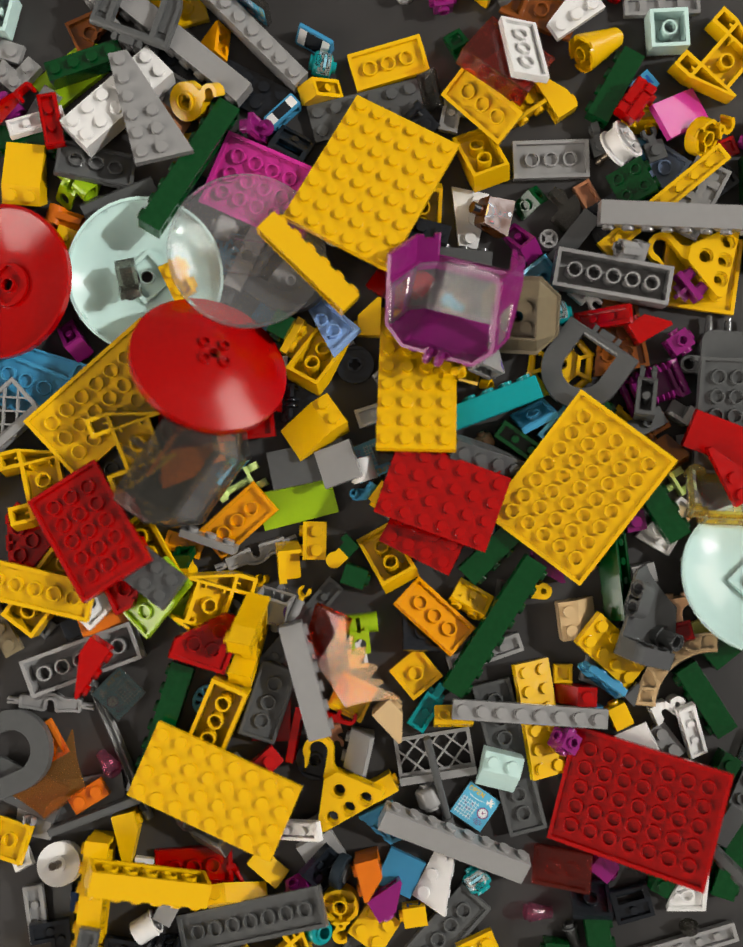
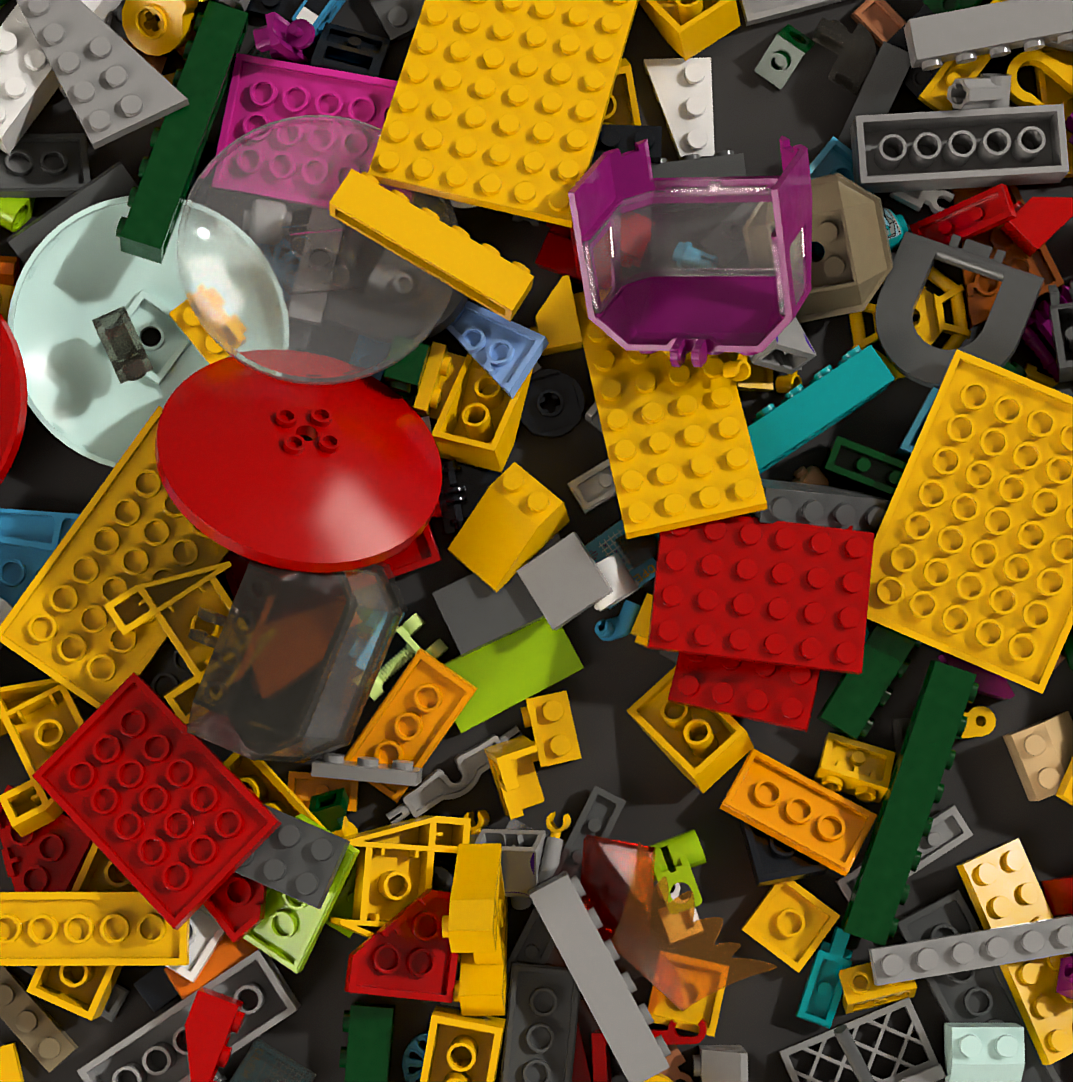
camera: 10 degrees left, 5 degrees down
(75, 341) = (49, 478): magenta slope -> none
(338, 557) = (600, 750): leg -> none
(355, 576) = (642, 772): dark green brick -> none
(390, 717) = (765, 1008): tan slope -> none
(493, 215) = (728, 91): torso -> none
(524, 243) = (797, 123): magenta slope -> none
(534, 415) = (885, 417): dark azure tile -> none
(550, 237) = (834, 104): light grey wheel -> none
(562, 672) = (1050, 860): yellow tile -> none

